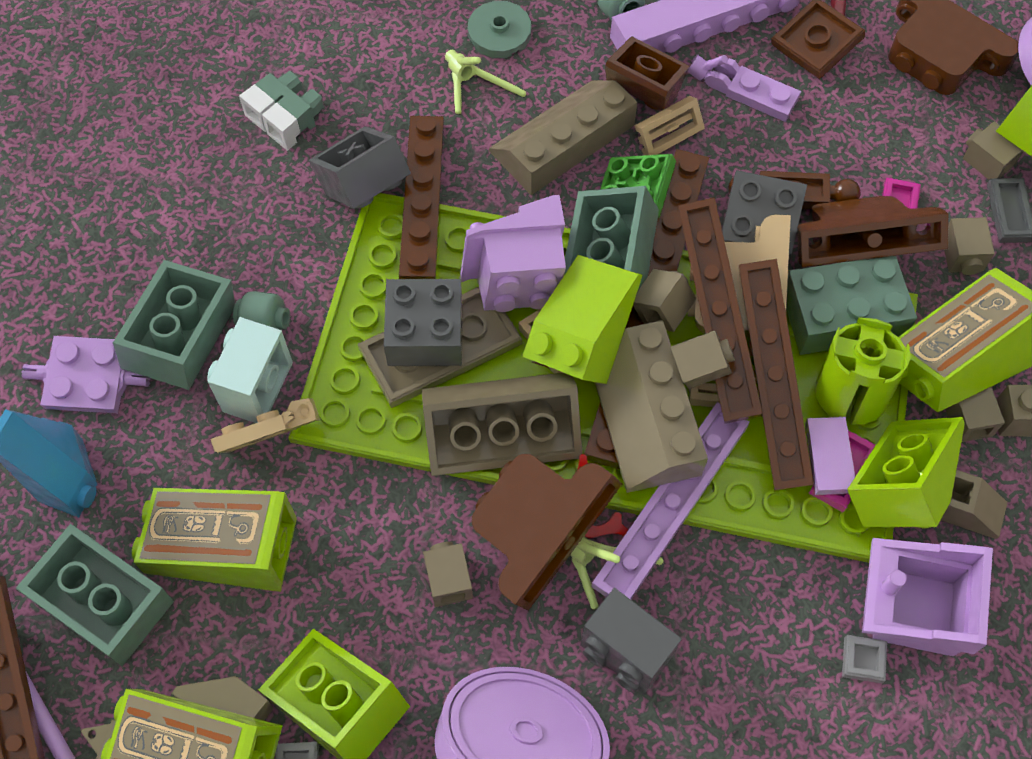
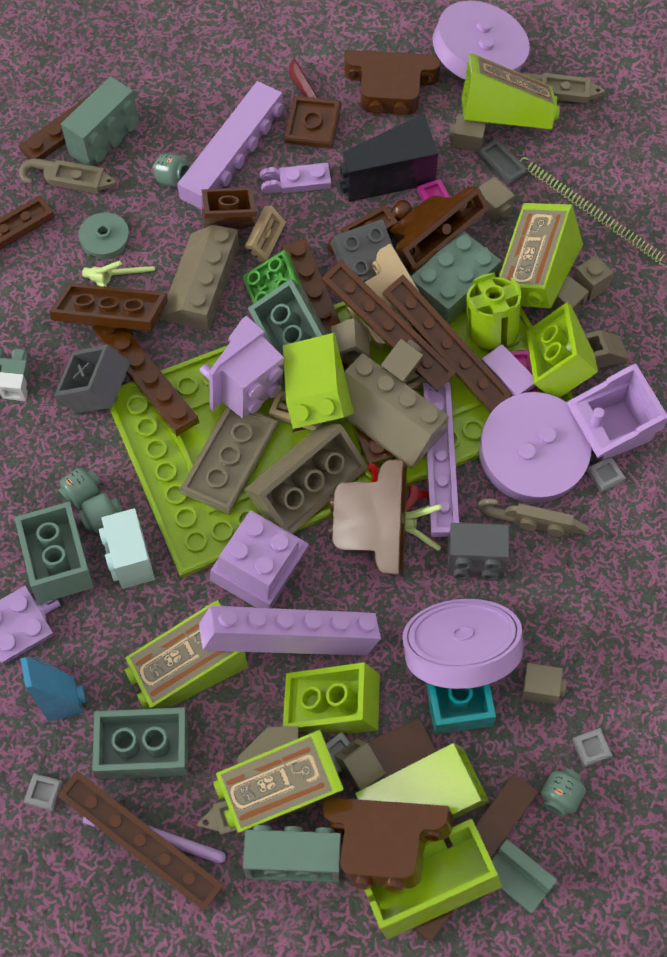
camera: 35 degrees left, 0 degrees up
(260, 272) = (78, 487): none -> sand green head
(269, 425) = (180, 553): tan hinge -> none
(334, 584) = (288, 631): none -> lavender brick
(377, 478) = (258, 561): none -> lavender piece
(423, 322) = (215, 447): dark grey brick -> none
(440, 103) = (109, 306): none -> reddish brown plate
(448, 573) = (342, 586): dark tan brick -> none
(700, 67) = (256, 183): lavender hand -> none
(731, 650) = (534, 518): none -> dark tan plate
(794, 566) = (533, 448): none -> lavender brick
(870, 128) = (390, 161): none -> black slope

